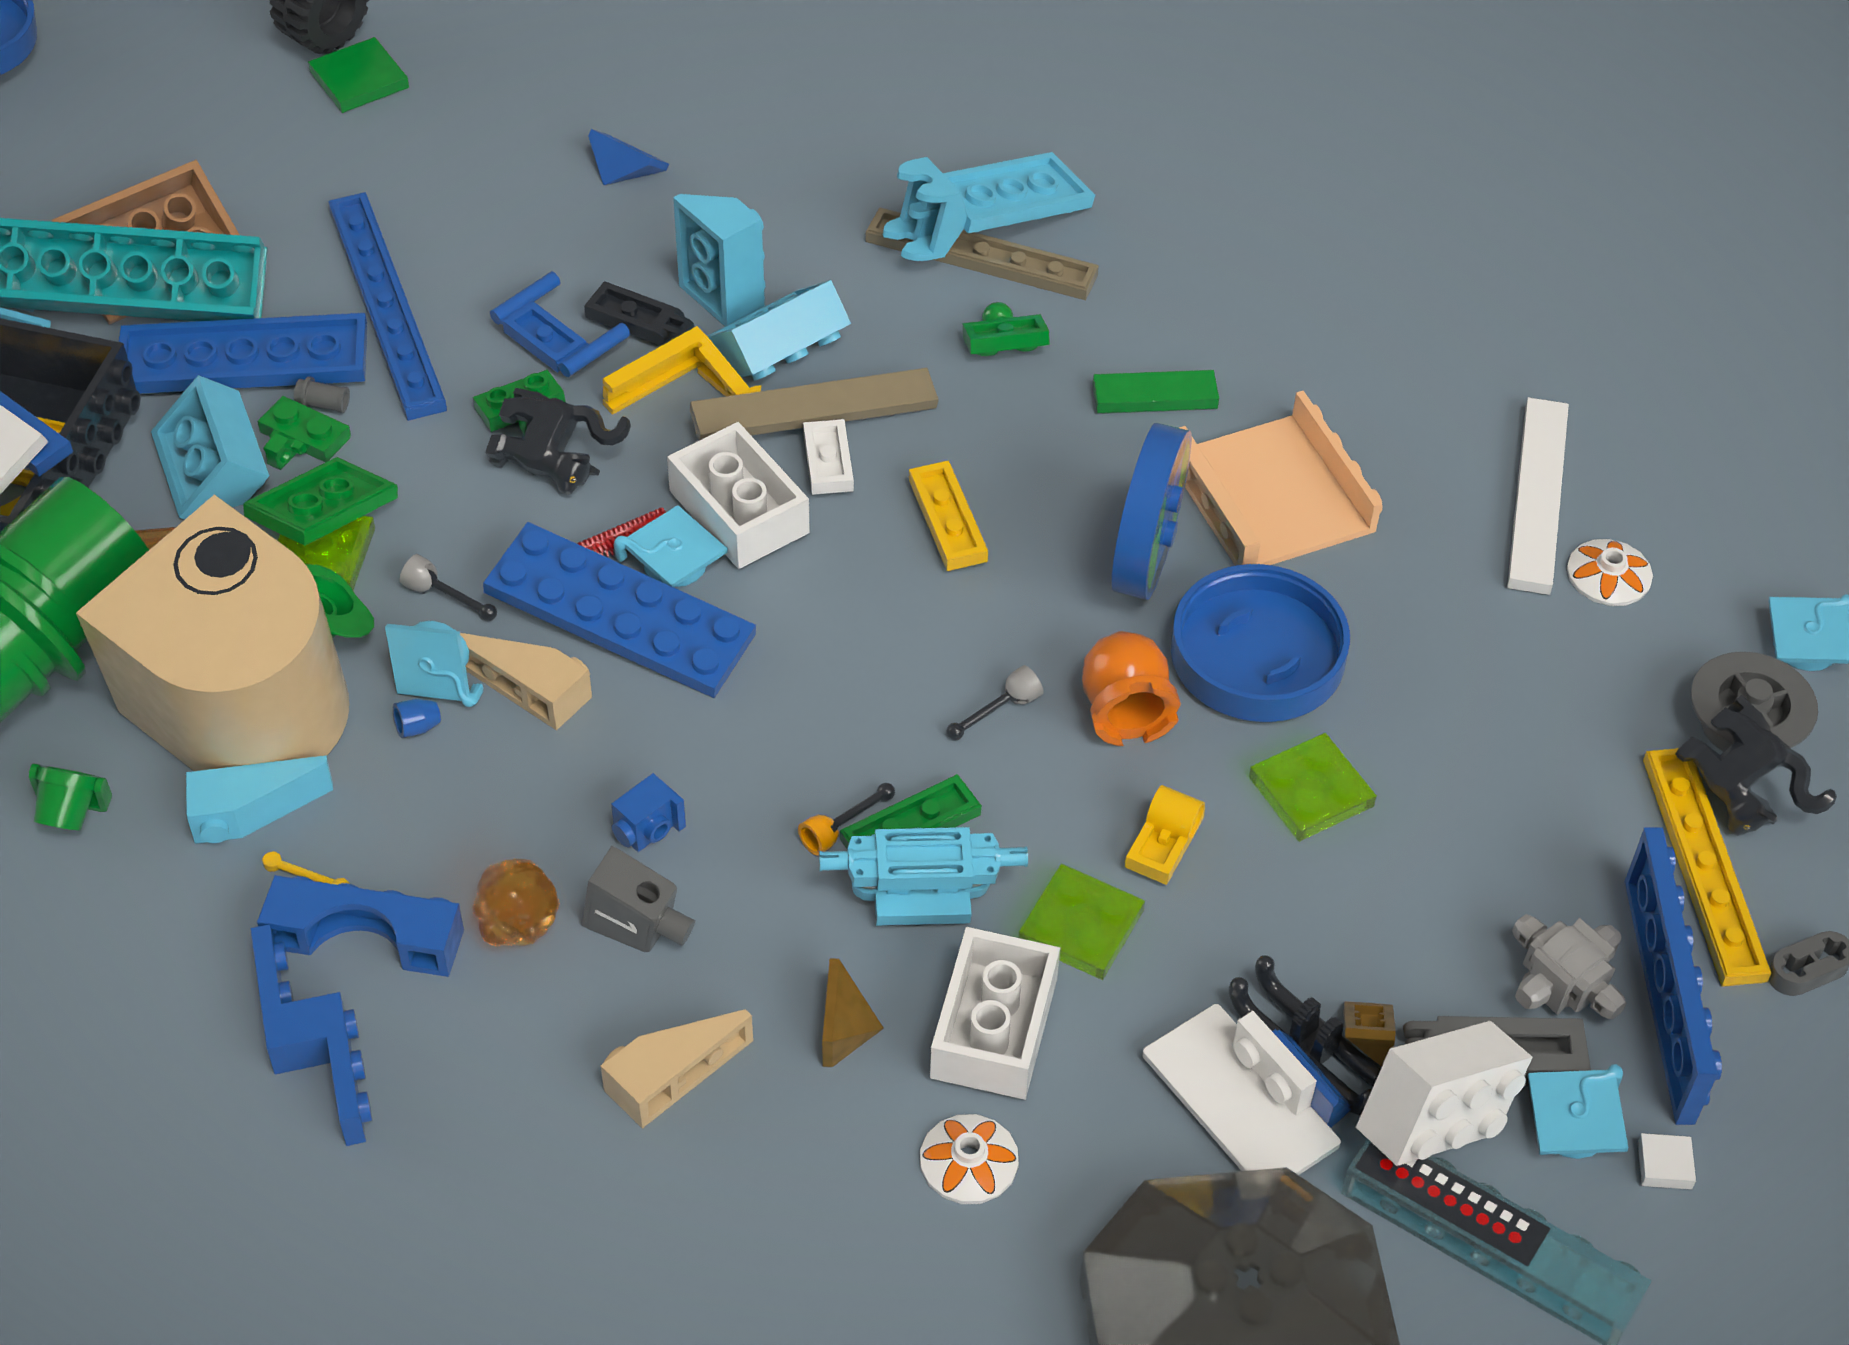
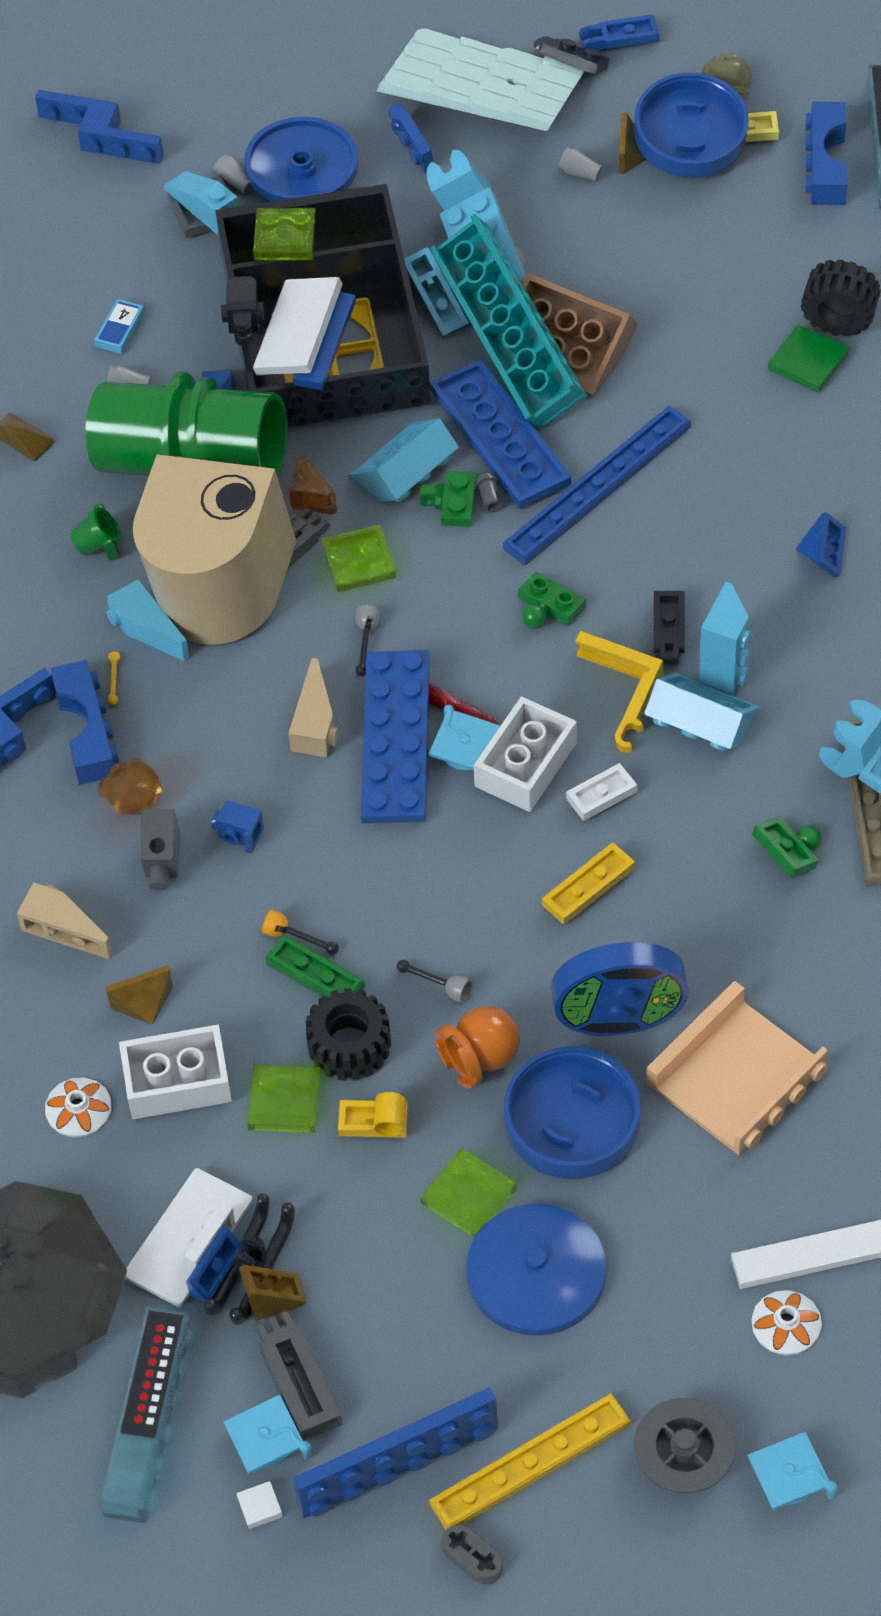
camera: 70 degrees right, 5 degrees up
(320, 501) = (390, 536): green tile -> none
(343, 609) = (307, 582): green piece -> none
(415, 716) = (254, 672): blue hose -> none
(431, 662) = (290, 658): medium azure hat -> none
(546, 335) = (618, 581): blue plate -> none
(546, 436) = (516, 625): black animal -> none
(825, 401) = (643, 763): dark tan tile -> none
(922, 872) = (262, 986): medium azure piece -> none
(1044, 783) = (348, 1011): none -> black tyre
(1155, 391) = (791, 964): green tile -> none
(1444, 1092) = (216, 1336): white brick -> none
(1447, 762) = (536, 1269): none -> blue dish
(1568, 966) = (379, 1392): light grey piece -> none
(1748, 759) = (616, 1444): black animal -> none

